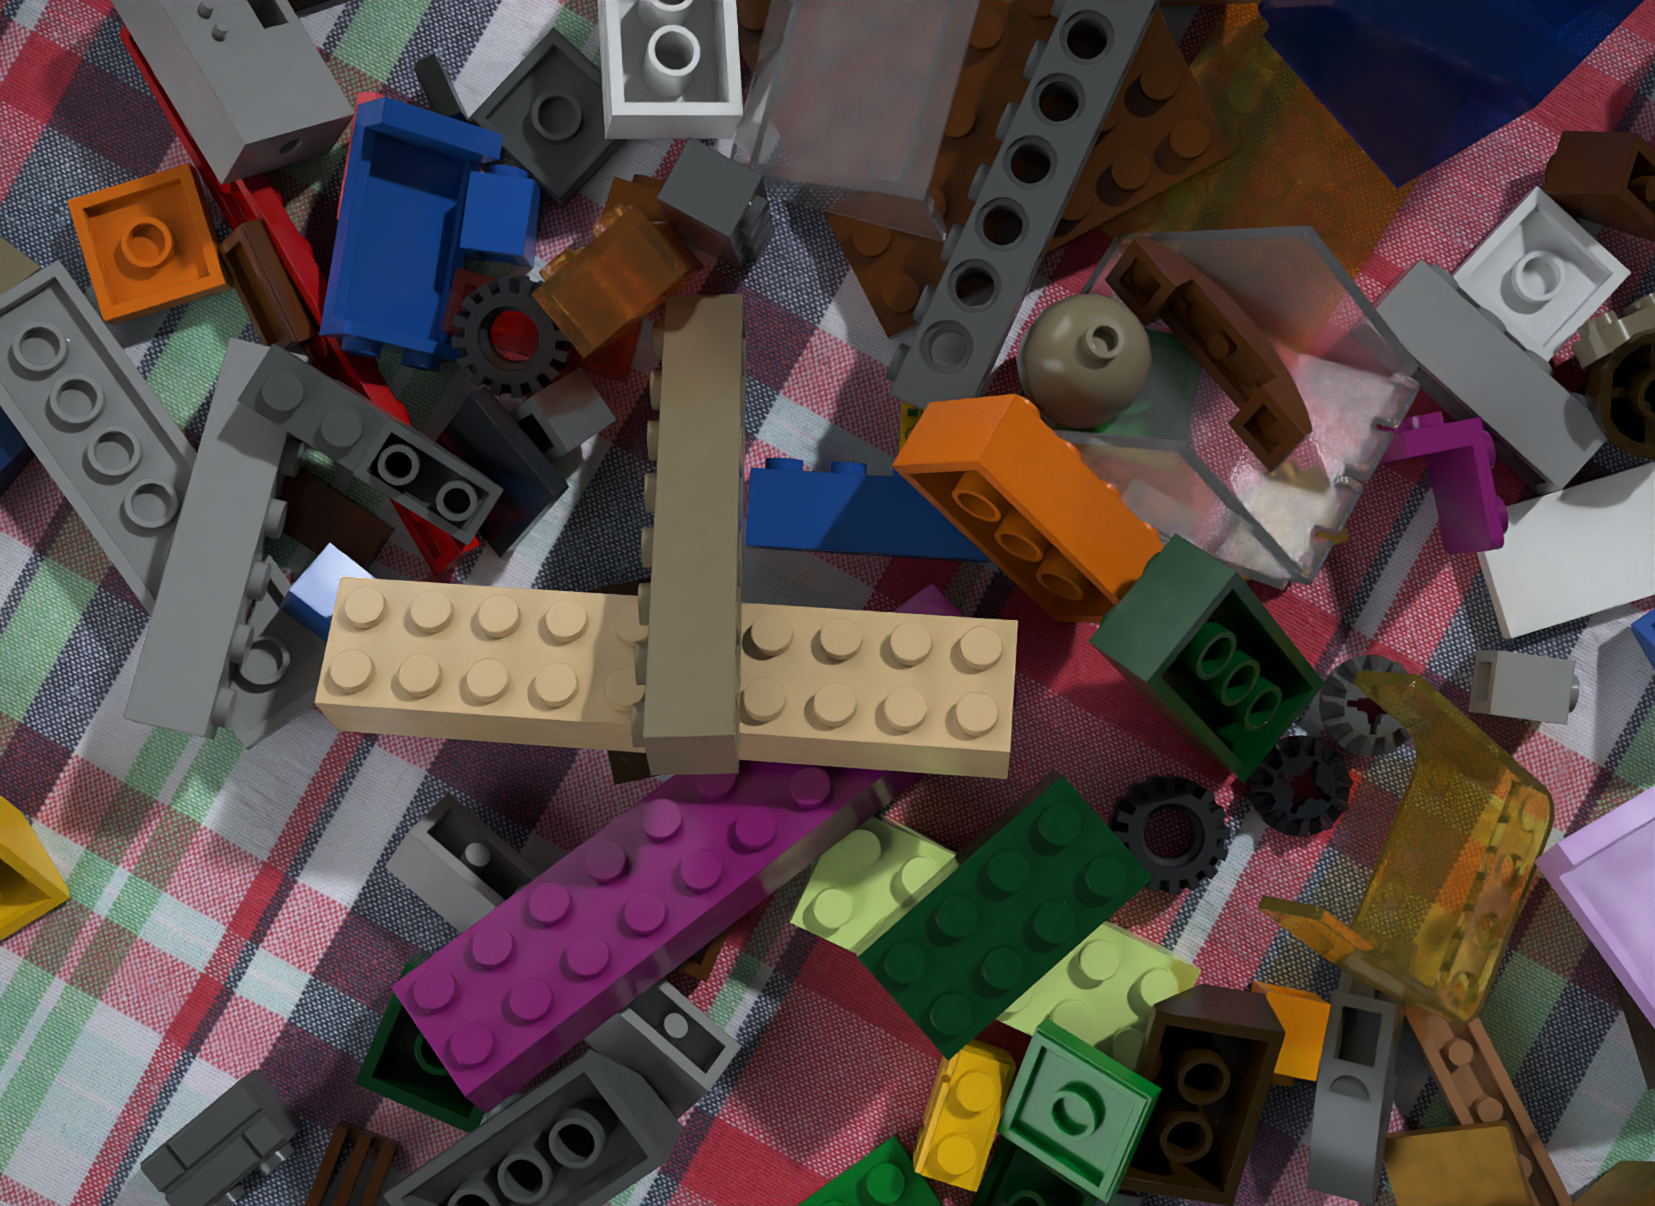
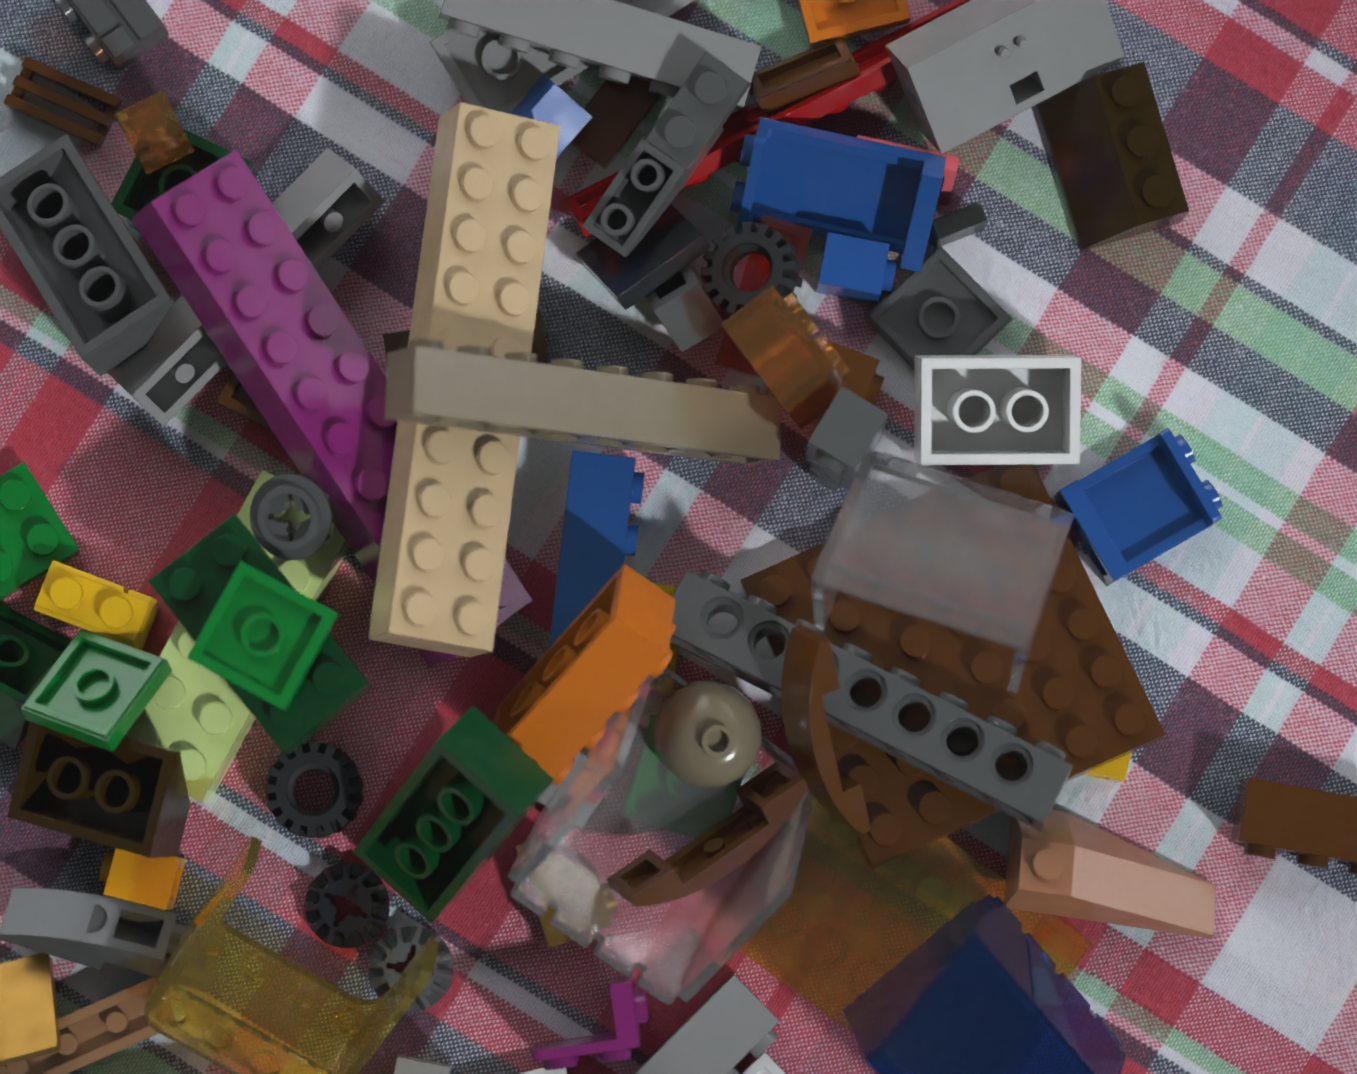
camera: 85 degrees right, 5 degrees down
(373, 1088) = (154, 132): none -> clear orange brick
(872, 900) = (277, 534): none -> dark grey gear
(1017, 912) = (263, 636): none -> green plate
(1028, 229) = (806, 677): none -> reddish brown slope

